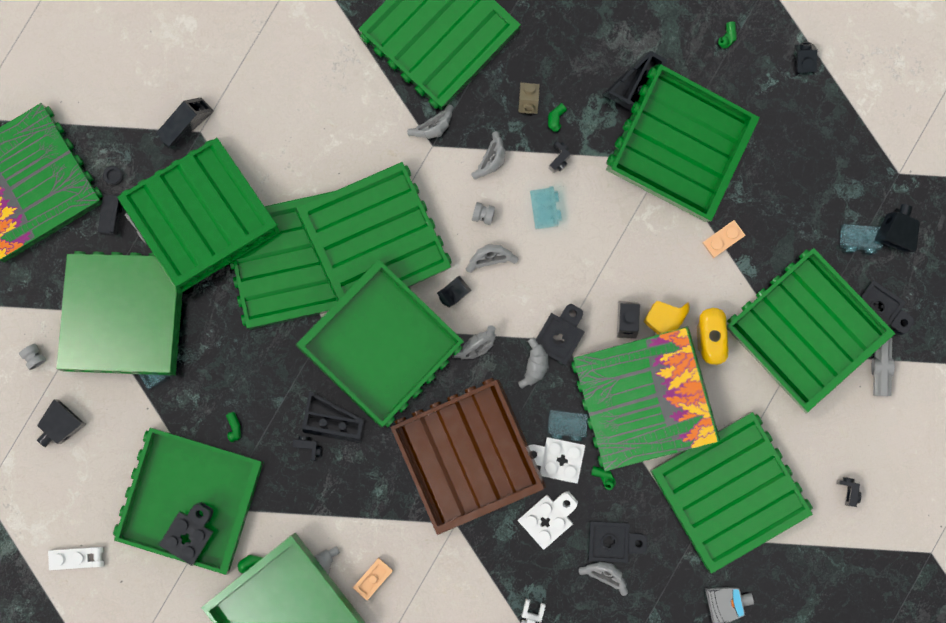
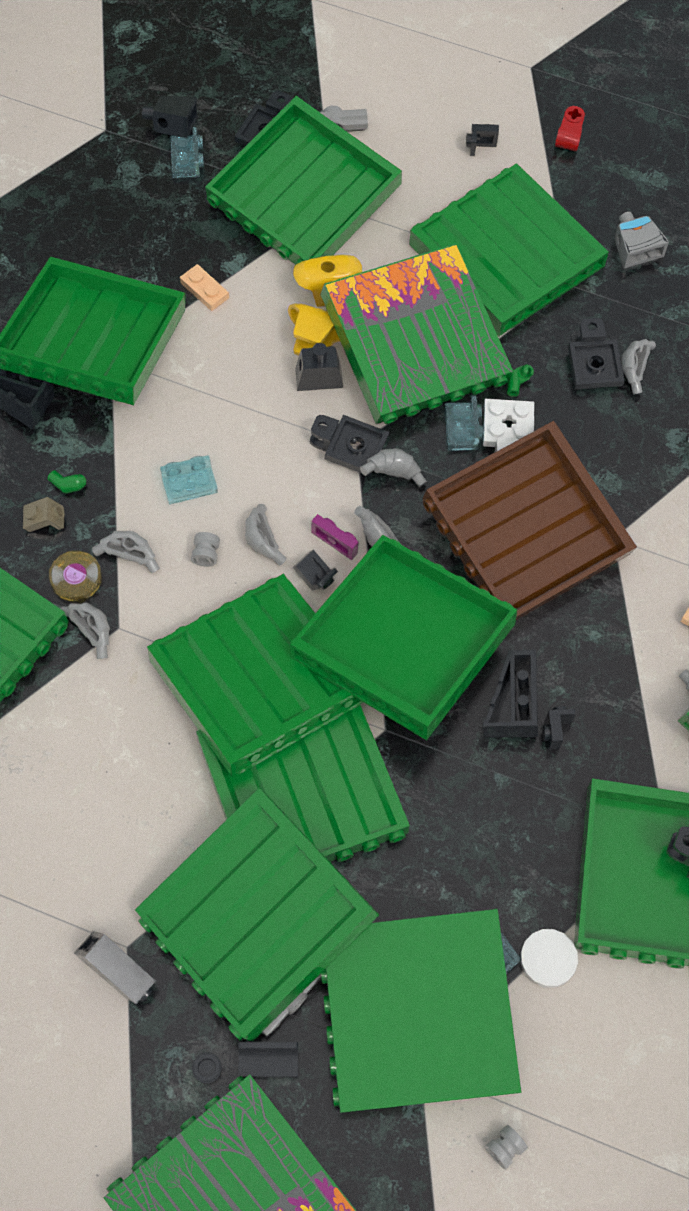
camera: 105 degrees left, 20 degrees down
(58, 424) = (600, 1087): black torso -> none
(147, 409) = (549, 958): none -> white tile
(235, 426) = (550, 827): green arm -> none
(475, 317) = (329, 533): none -> magenta plate
(477, 117) = (75, 575): none -> clear yellow tile
(555, 511) = (575, 421): white plate -> none
(560, 162) = (123, 467): black bracket -> none
(847, 570) = (570, 129): none -> red piece

